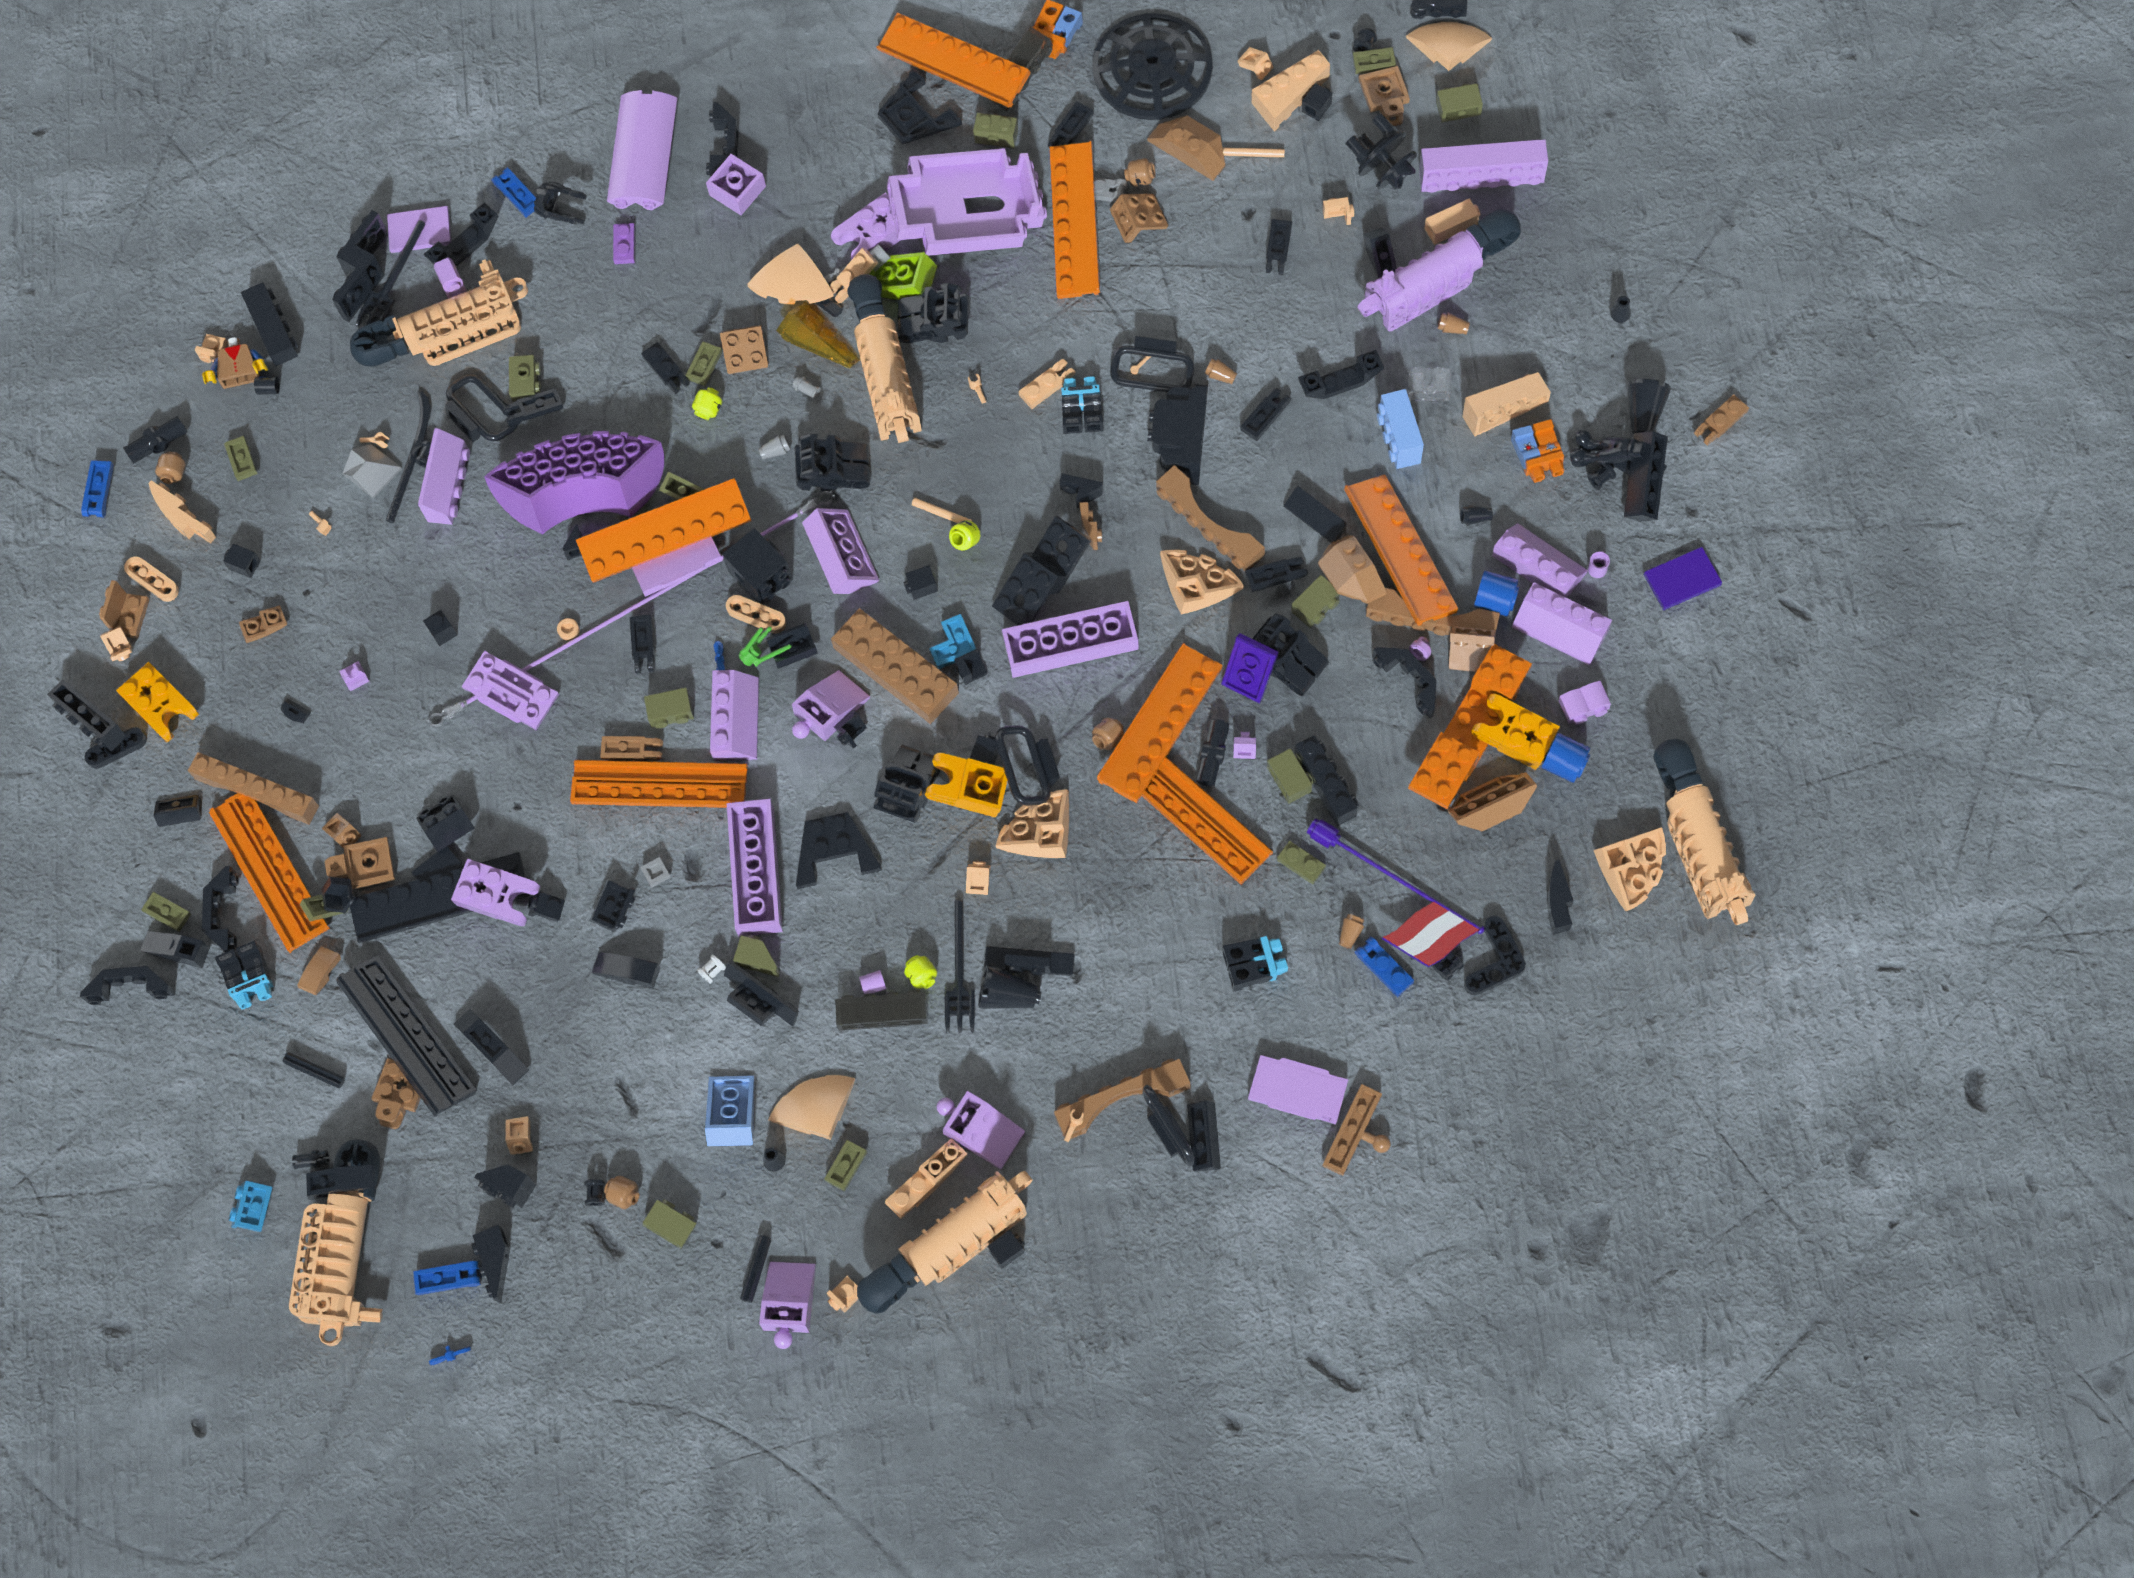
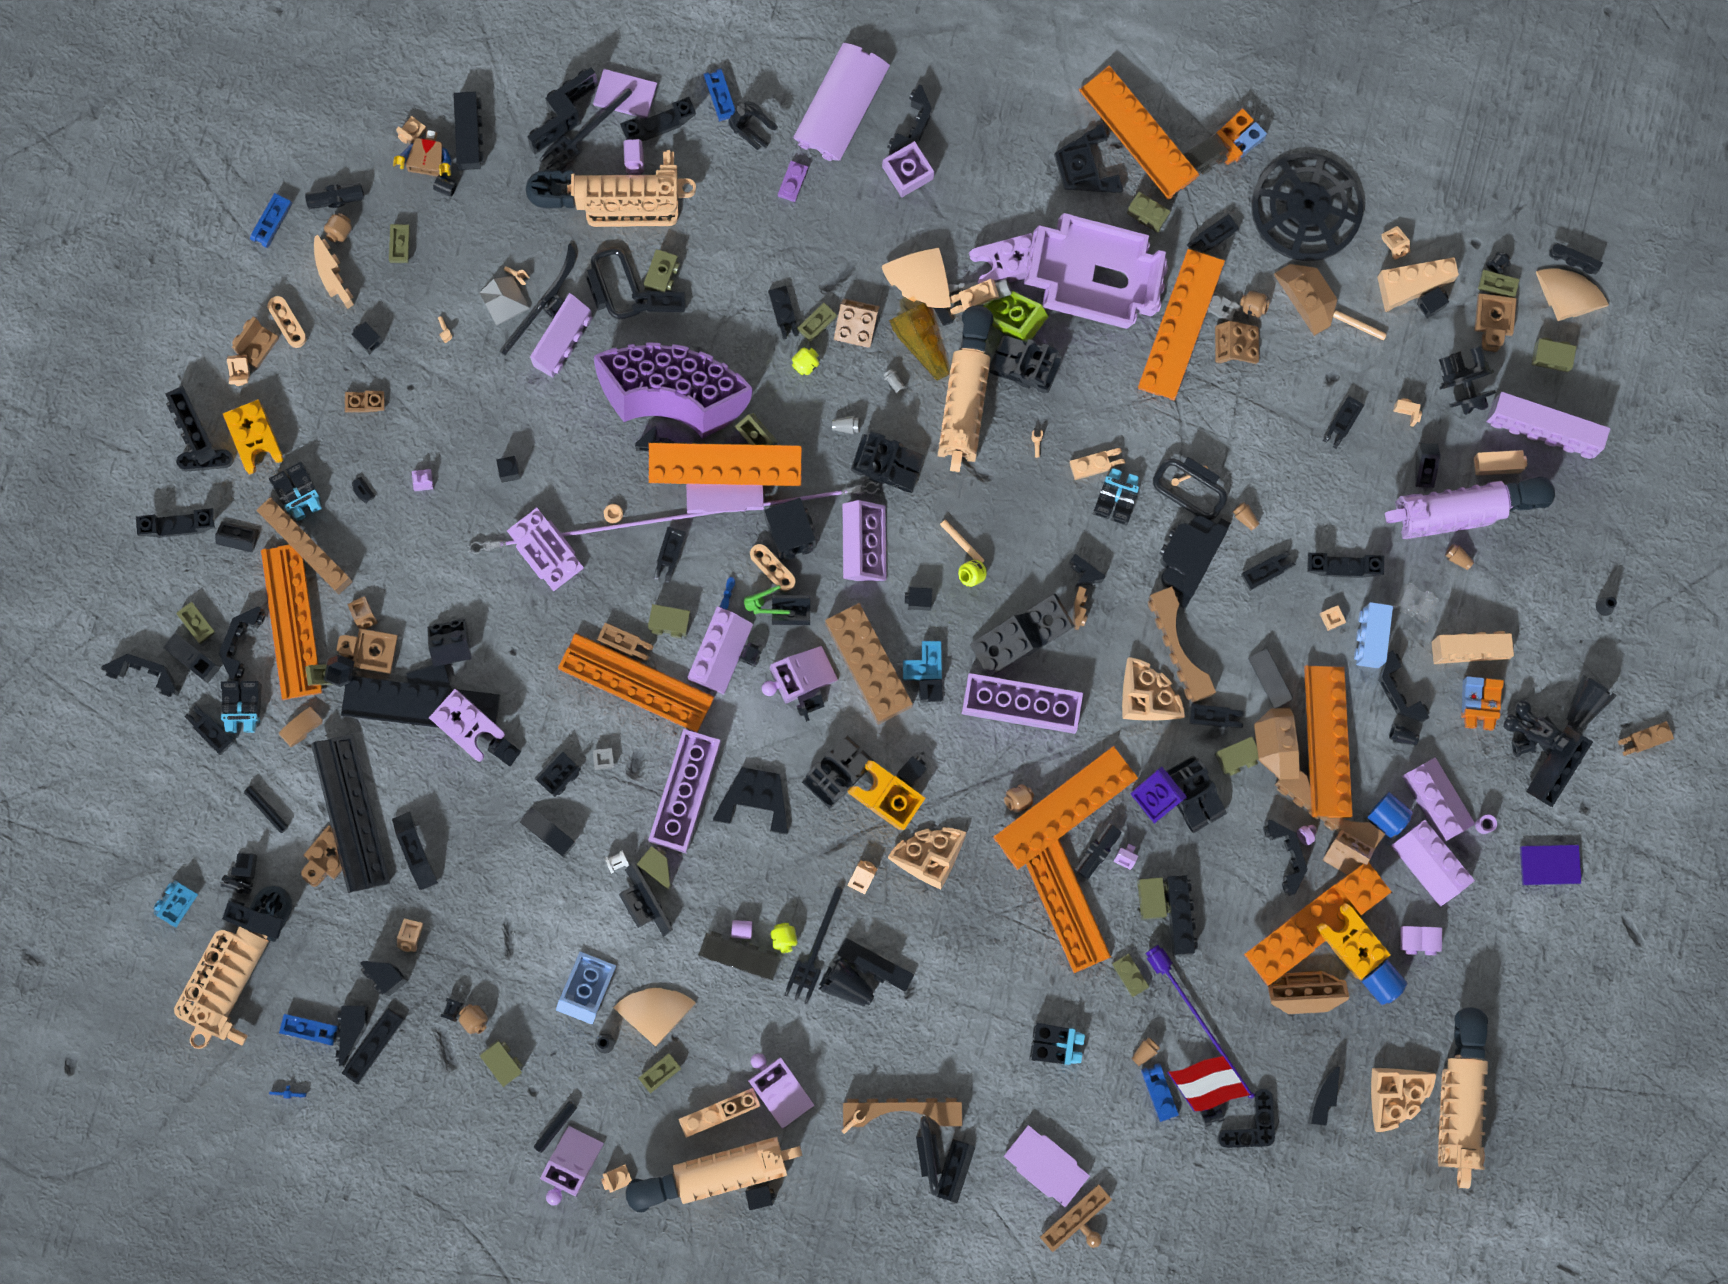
camera: 10 degrees right, 10 degrees up
(98, 830) = (175, 525): none -> black slope
(223, 1014) = (210, 731): none -> black hinge
(231, 742) = (299, 497): none -> hips
(312, 1137) = (245, 865): none -> black panel
(524, 1267) = (373, 1046): none -> black tile
(767, 707) = (750, 654): none -> black brick
(1042, 760) = (955, 803): black bar -> none
(1352, 432) = (1333, 618): none -> light nougat plate
(1476, 487) = (1416, 711): none -> black slope

